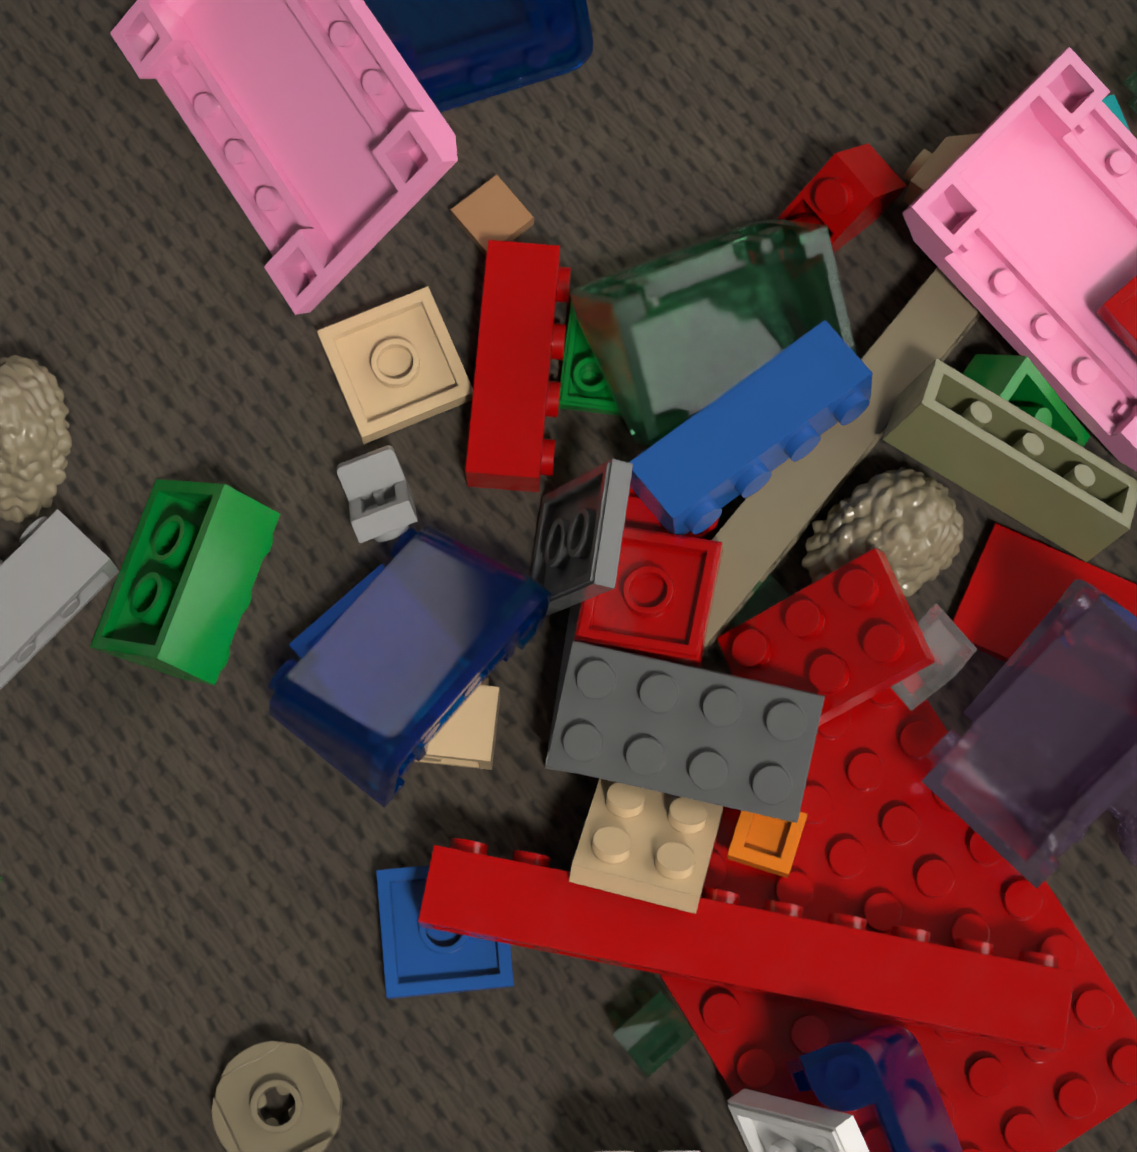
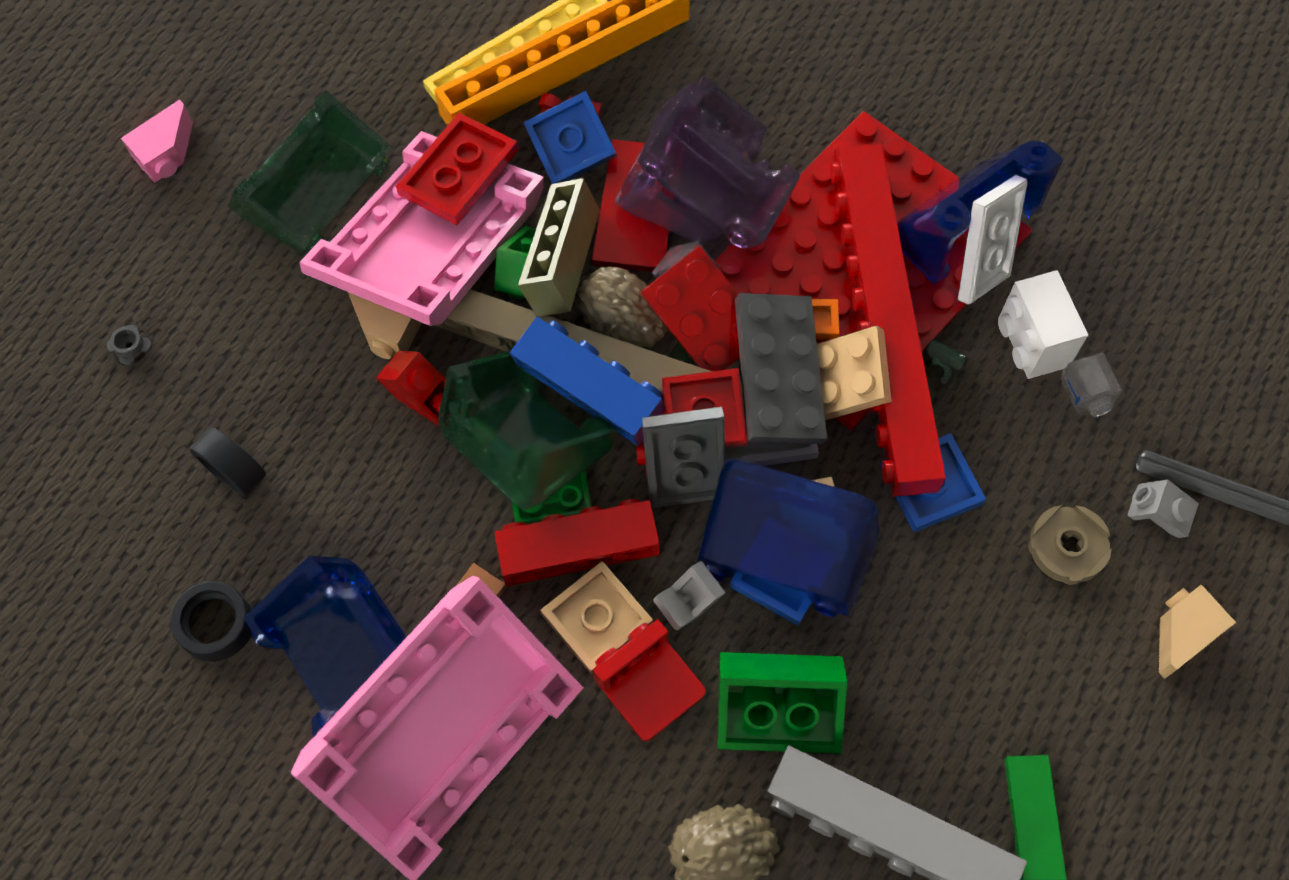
camera: 105 degrees left, 10 degrees down
(276, 408) = (648, 681): none -> red bracket

